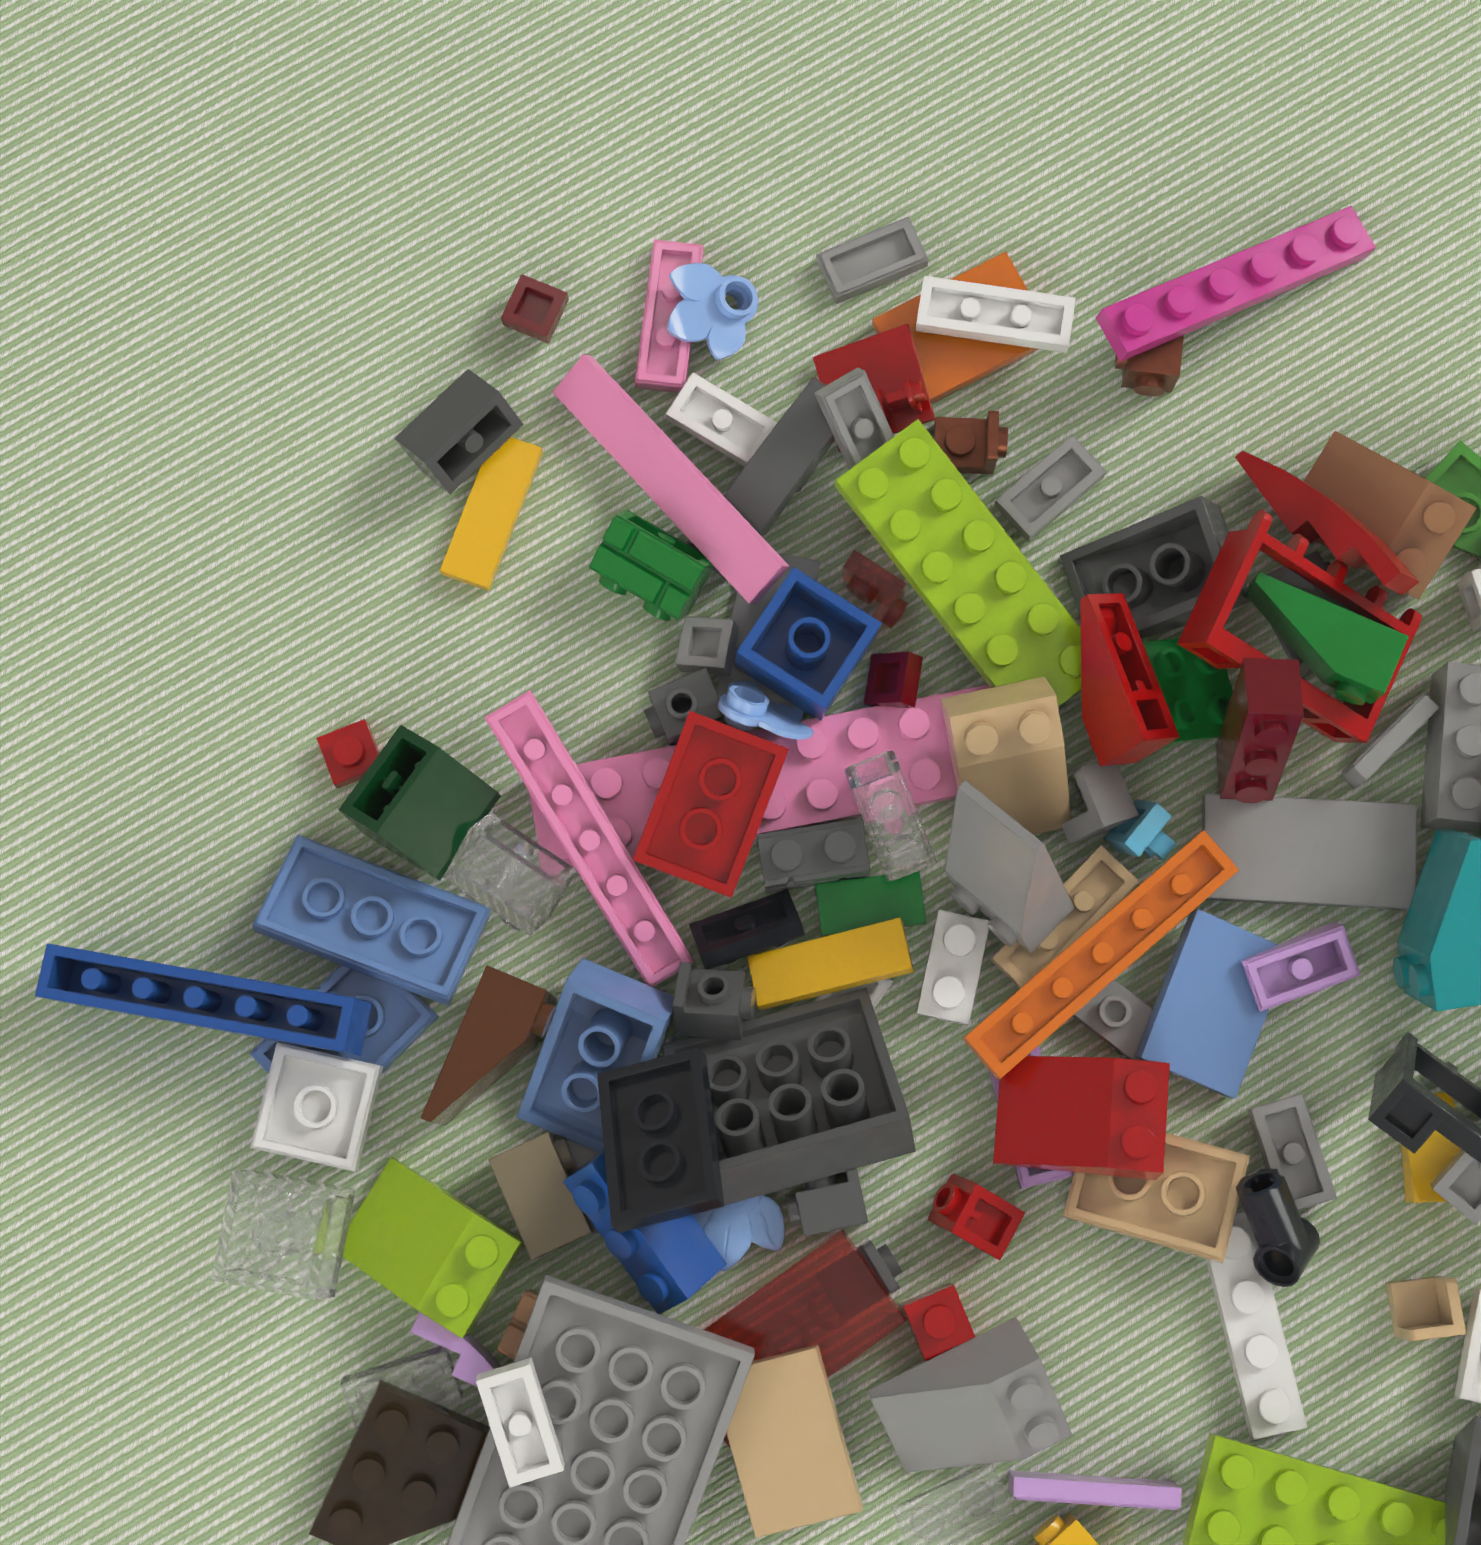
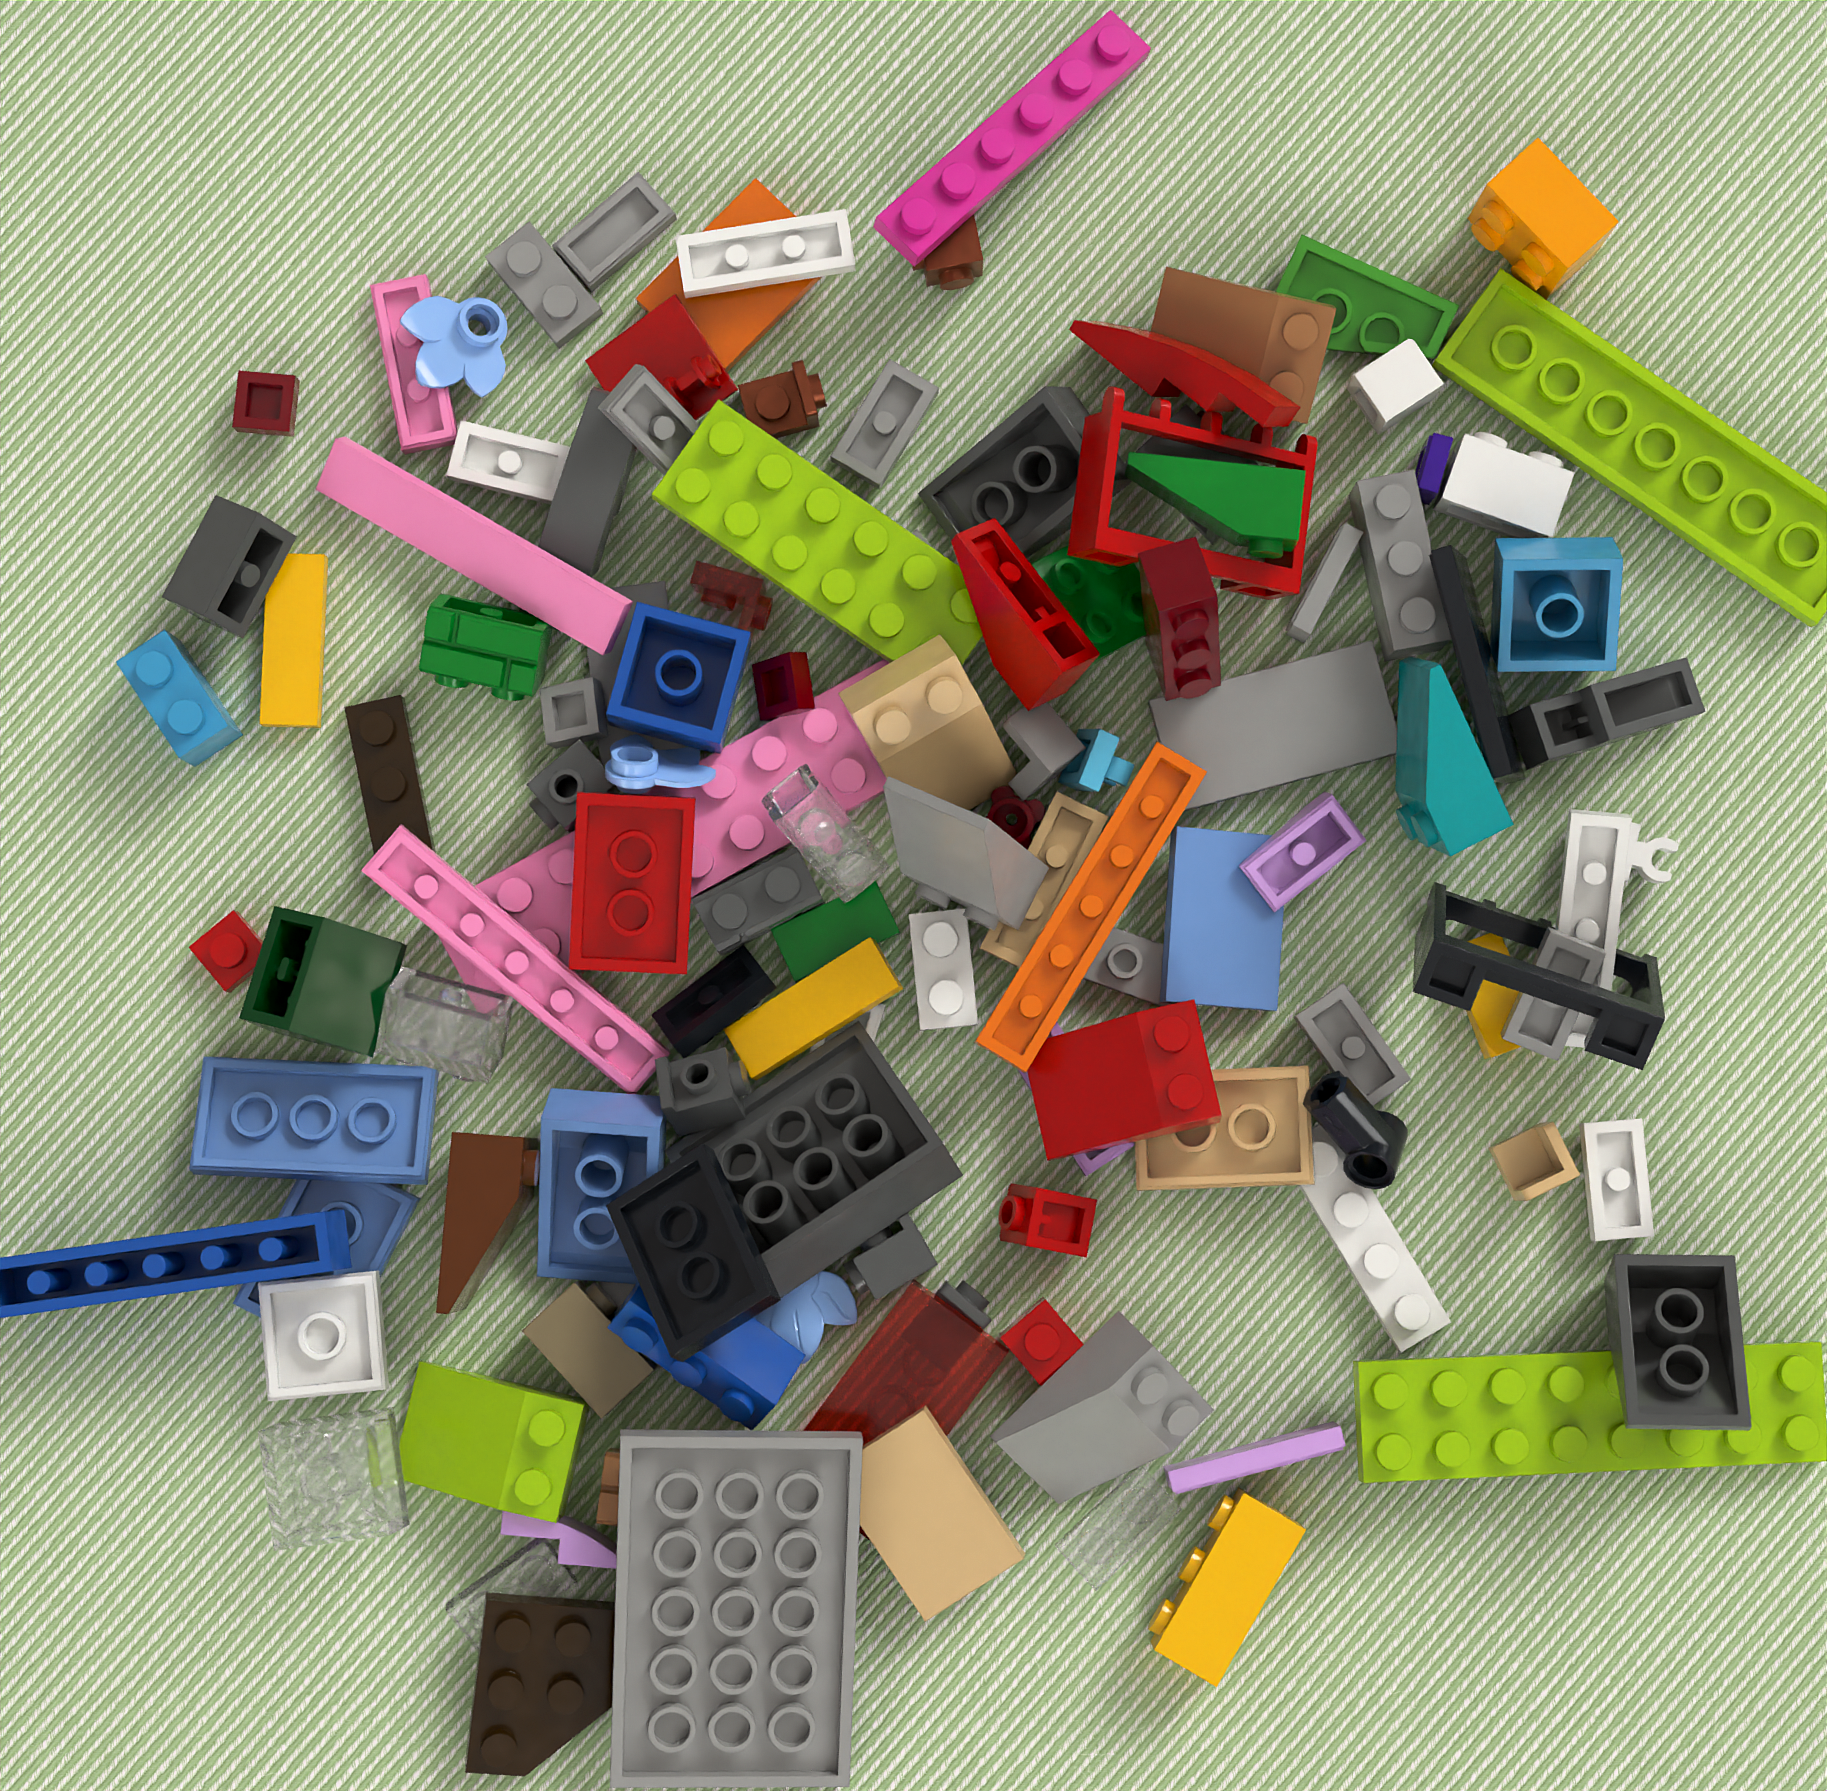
camera: 20 degrees left, 5 degrees up
(380, 527) = (179, 698): none -> dark azure brick
(520, 1422) = (644, 1587): white plate -> none
(534, 642) = (388, 770): none -> dark brown plate
(799, 285) = (544, 285): none -> light grey plate
(1069, 855) = (1027, 813): none -> dark red plate

